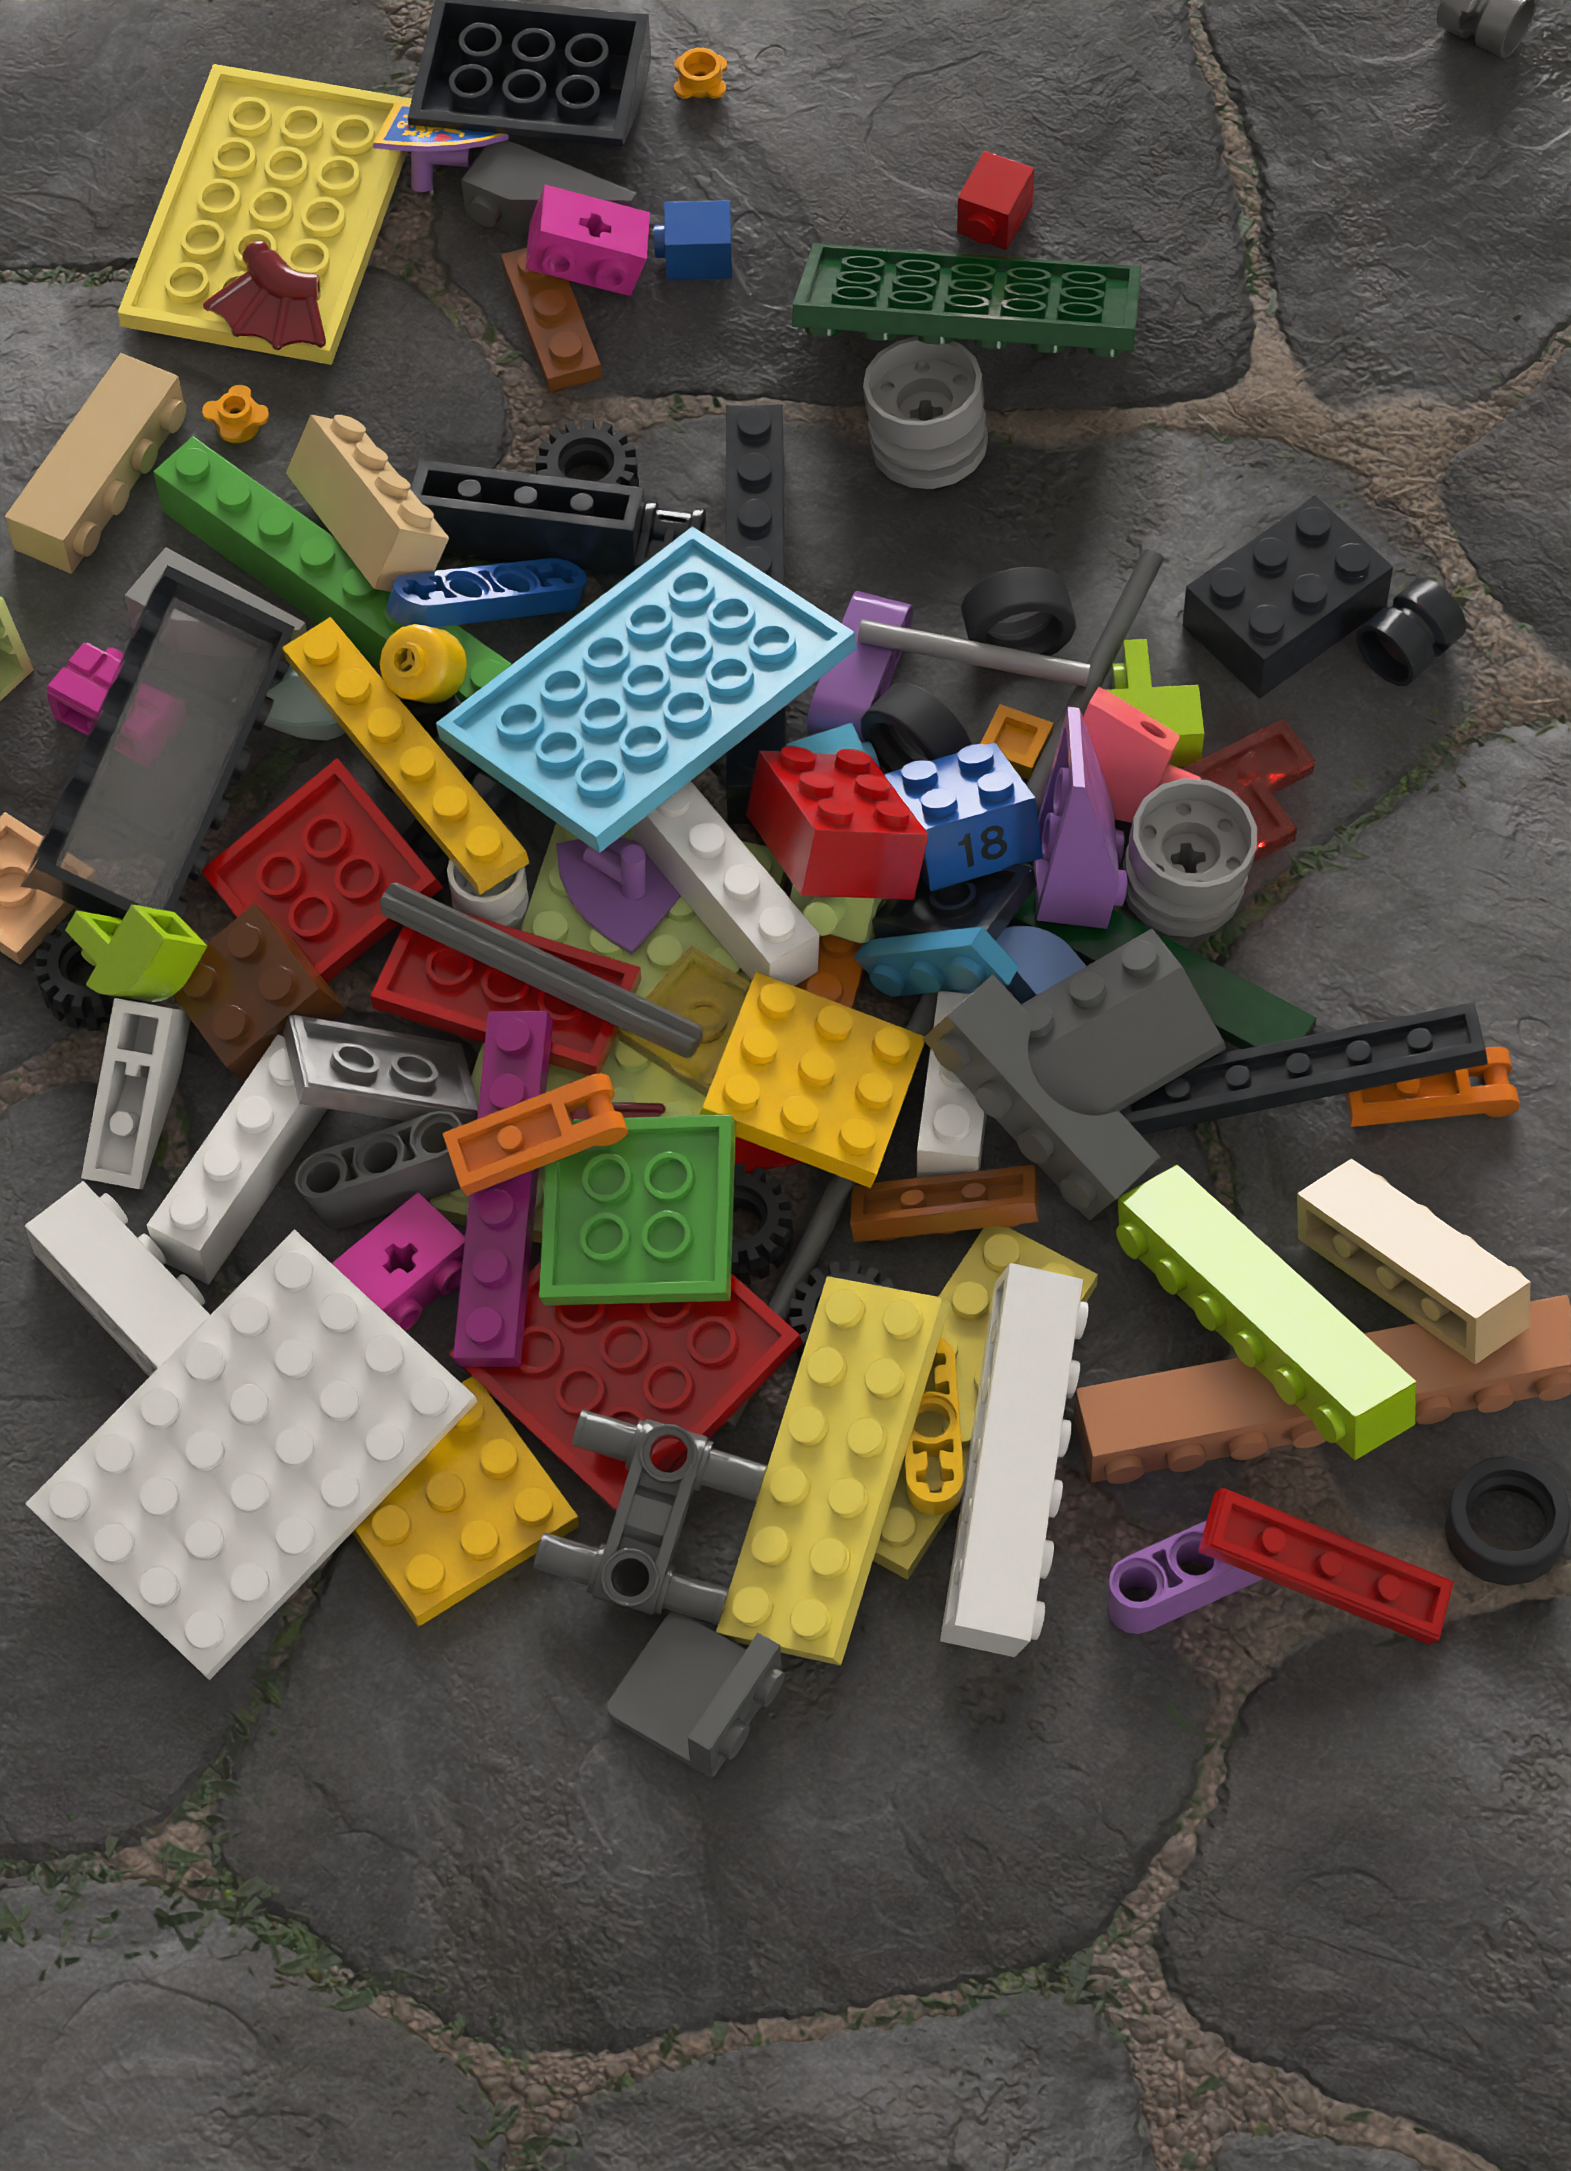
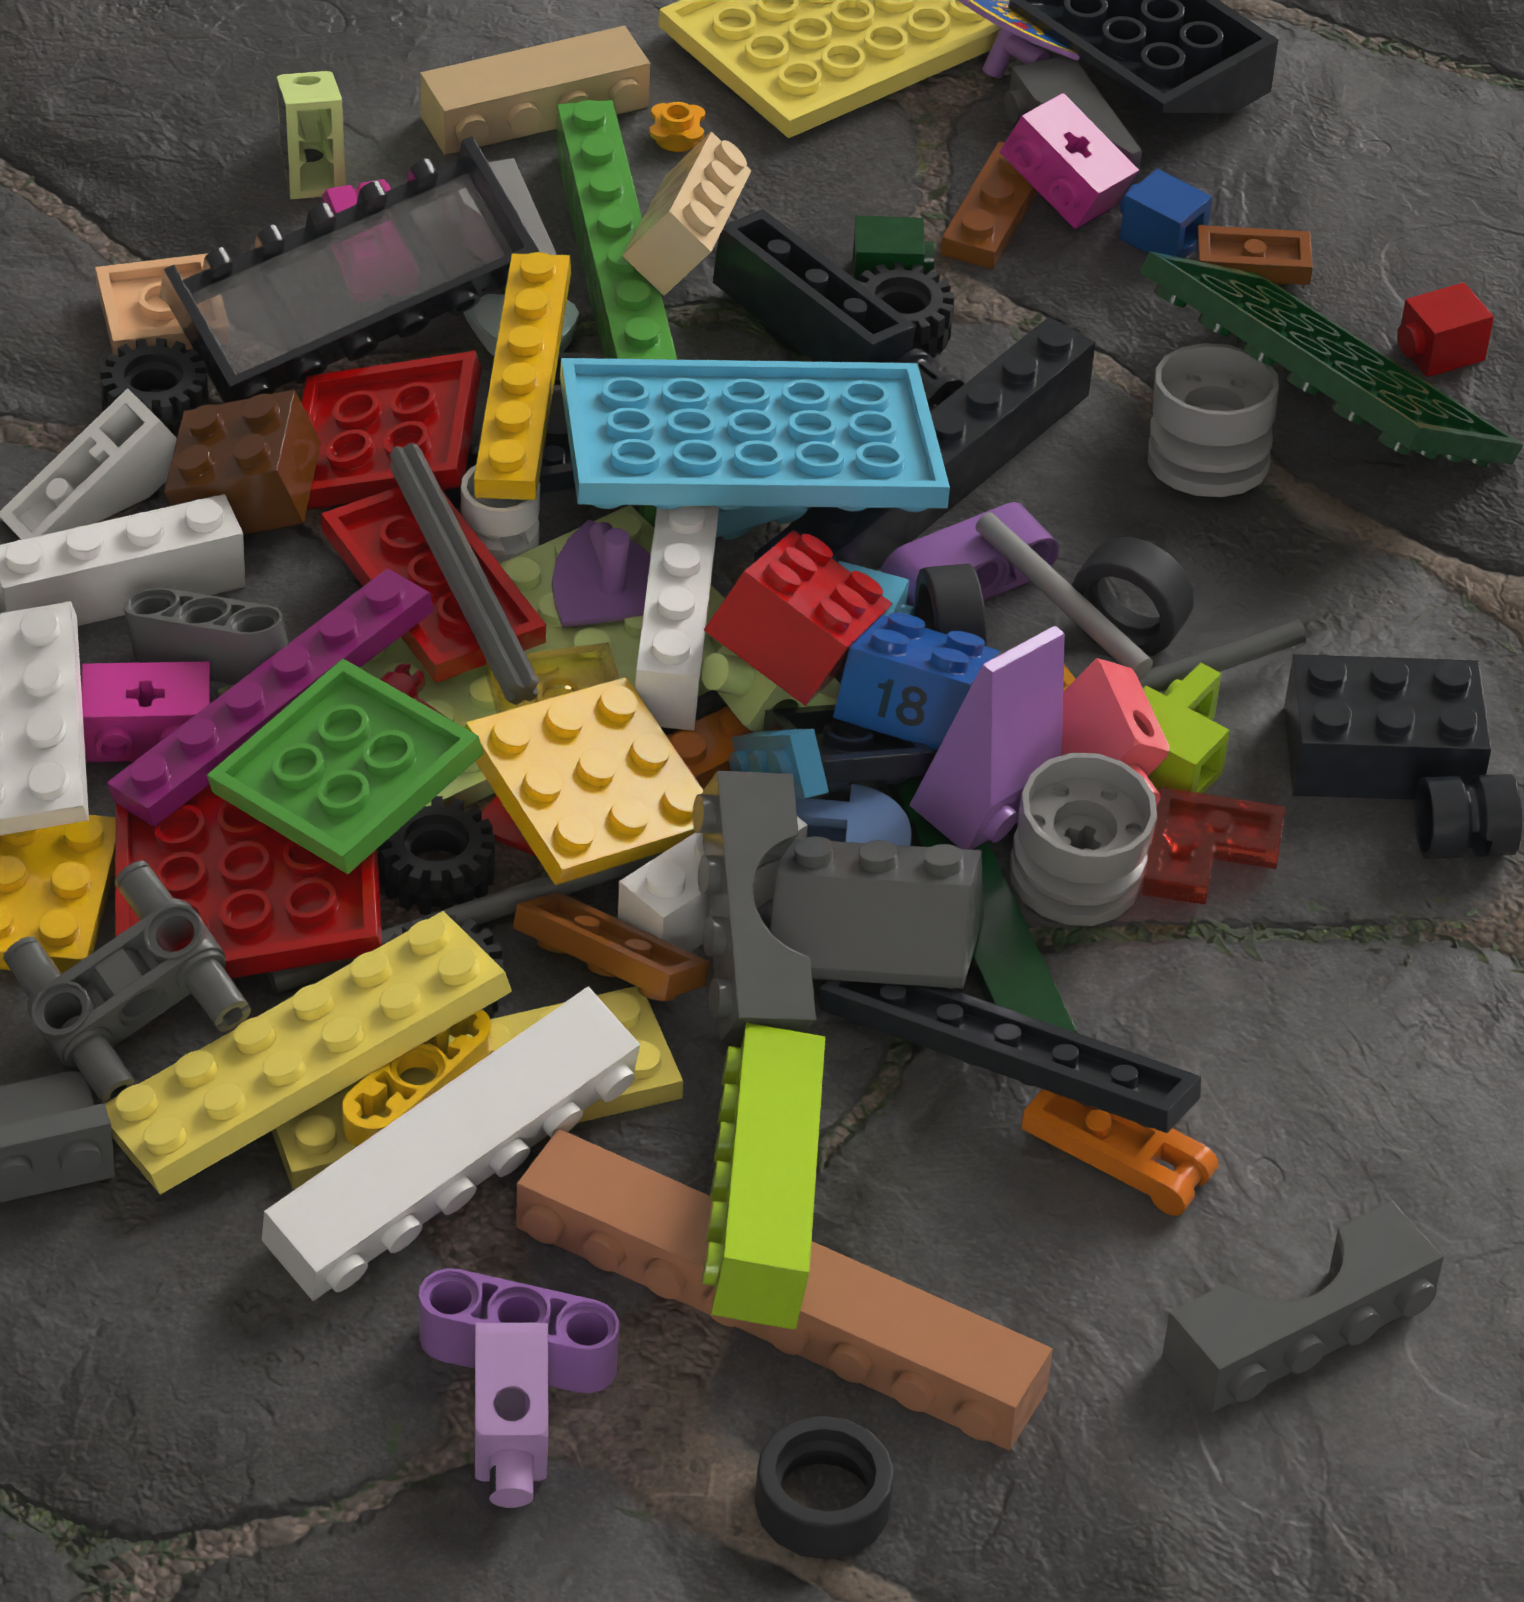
camera: 35 degrees right, 15 degrees down
(137, 957) = (177, 370): lime brick -> none
(271, 301) = (779, 62): dark red arm -> none
(377, 1071) = (261, 556): flat silver tile -> none
(423, 664) = (600, 319): yellow head -> none
(486, 593) = (704, 314): blue beam -> none
(523, 421) = (888, 241): none -> dark green brick
(534, 1133) = (317, 652): orange plate -> none
(700, 74) = (1296, 120): light orange plate -> none
(791, 228) = (1275, 254): none -> dark orange plate
(1267, 1639) = (511, 1409): none -> lavender torso
(1326, 1566) = (621, 1398): red tile -> none
(1414, 1260) = (945, 1231): brick -> none

